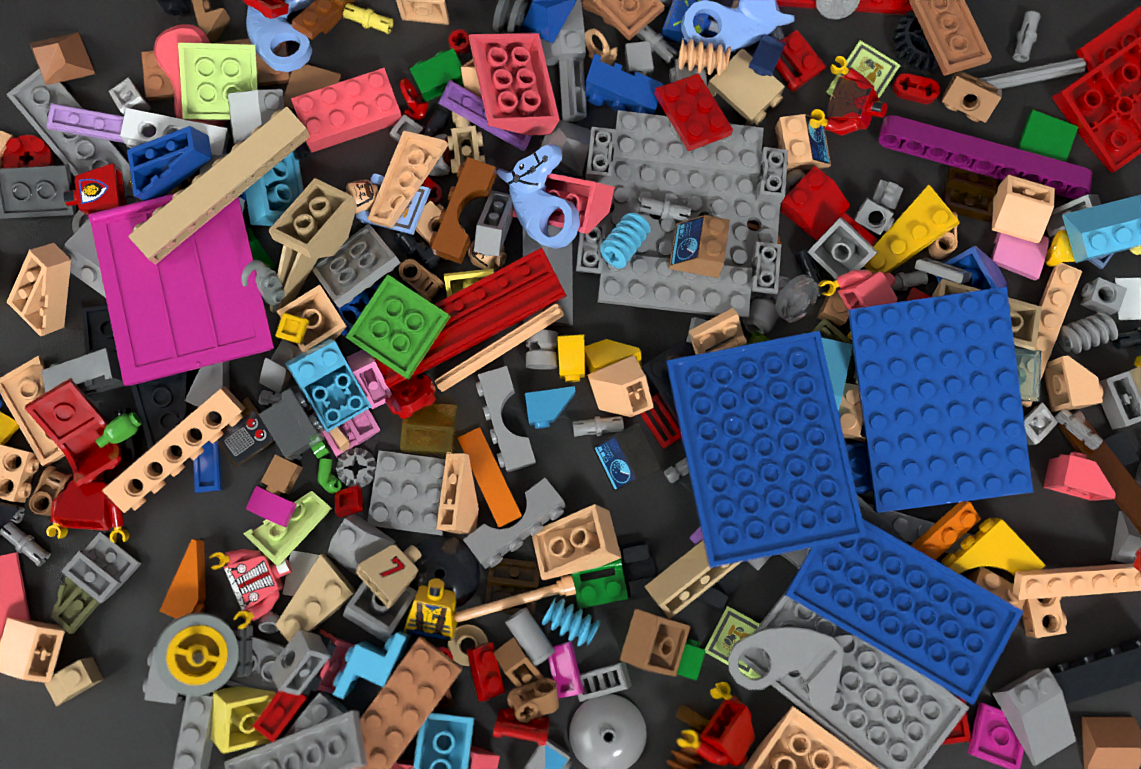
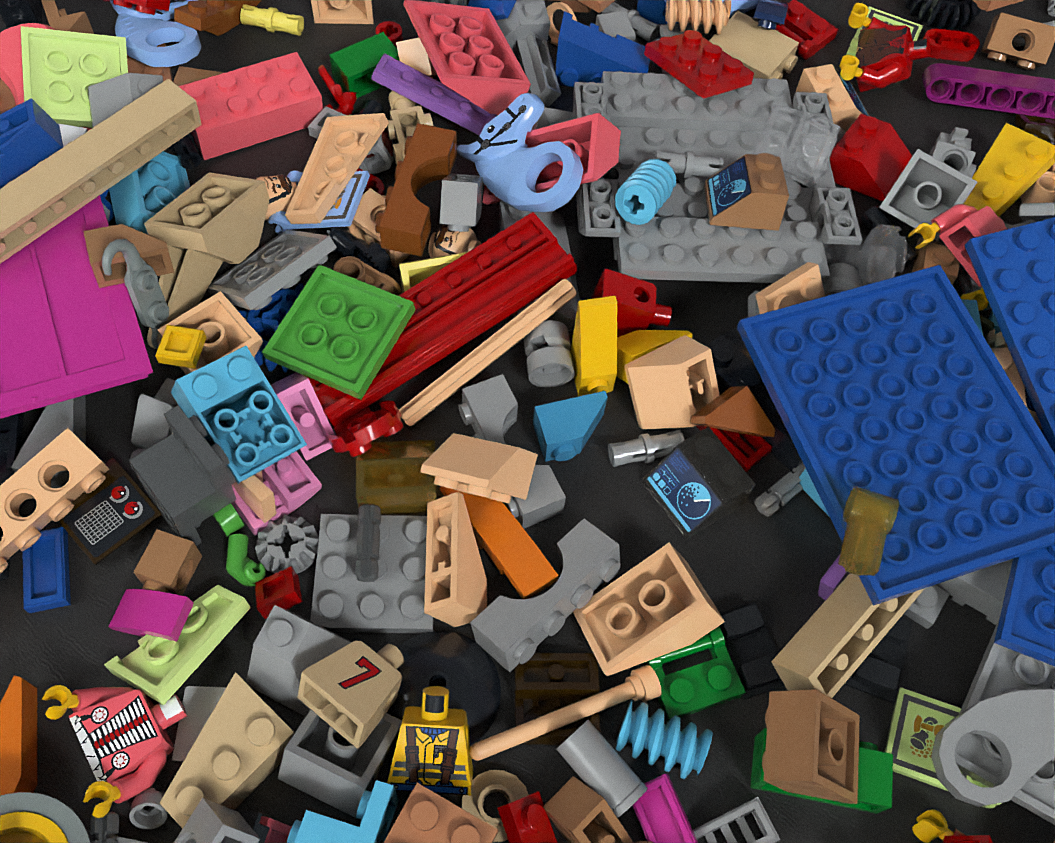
camera: 10 degrees left, 20 degrees down
(250, 248) = (151, 250): none -> medium nougat slope
(406, 477) = (368, 543): none -> dark grey axle
(481, 440) = (482, 468): none -> light nougat slope
(592, 315) = (634, 302): none -> red torso
(655, 416) = (735, 412): none -> dark orange slope
(713, 519) = (868, 522): none -> clear yellow piece
(749, 200) = (799, 141): none -> clear slope

